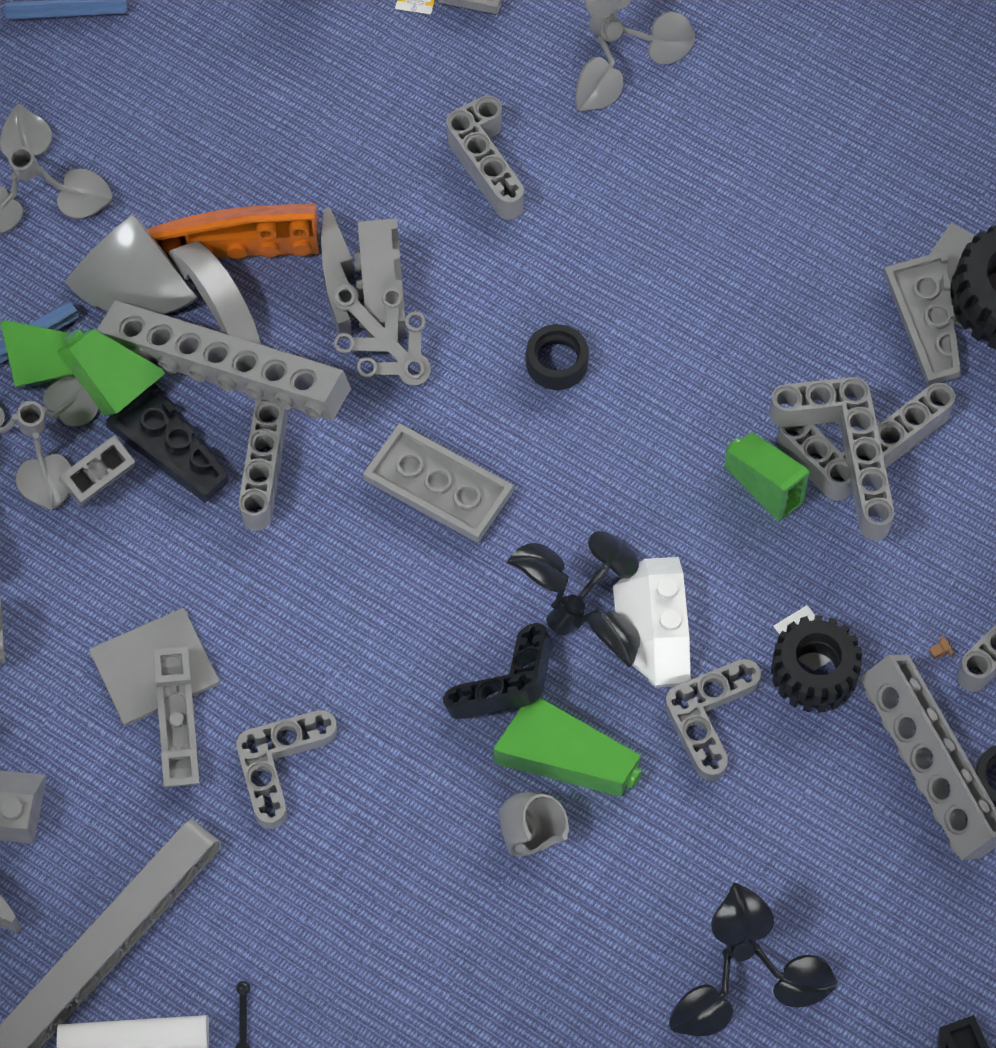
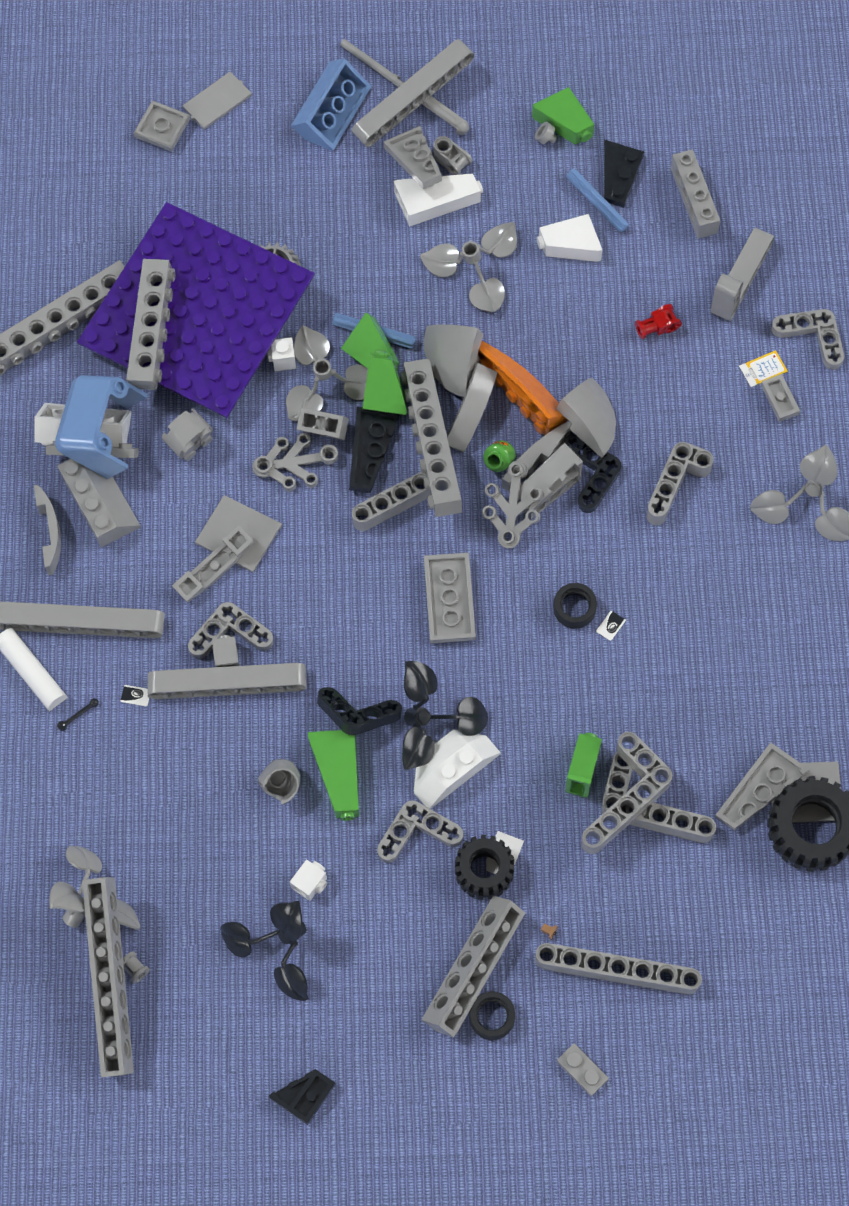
camera: 55 degrees right, 5 degrees up
(94, 63) = (570, 240): none -> white slope
(114, 543) = (292, 462): none -> light grey plant
(272, 931) = (135, 695): none -> sticker
(275, 46) = (660, 321): none -> red connector
(304, 310) = (499, 456): none -> bright green head
(308, 781) = (225, 651): none -> light grey brick
(336, 184) = (590, 415): none -> light grey brick
(343, 806) = (226, 681): none -> light grey beam
(398, 209) = (600, 468): none -> black beam
(608, 340) = (610, 625): none -> sticker
(685, 876) = (309, 879): none -> white brick

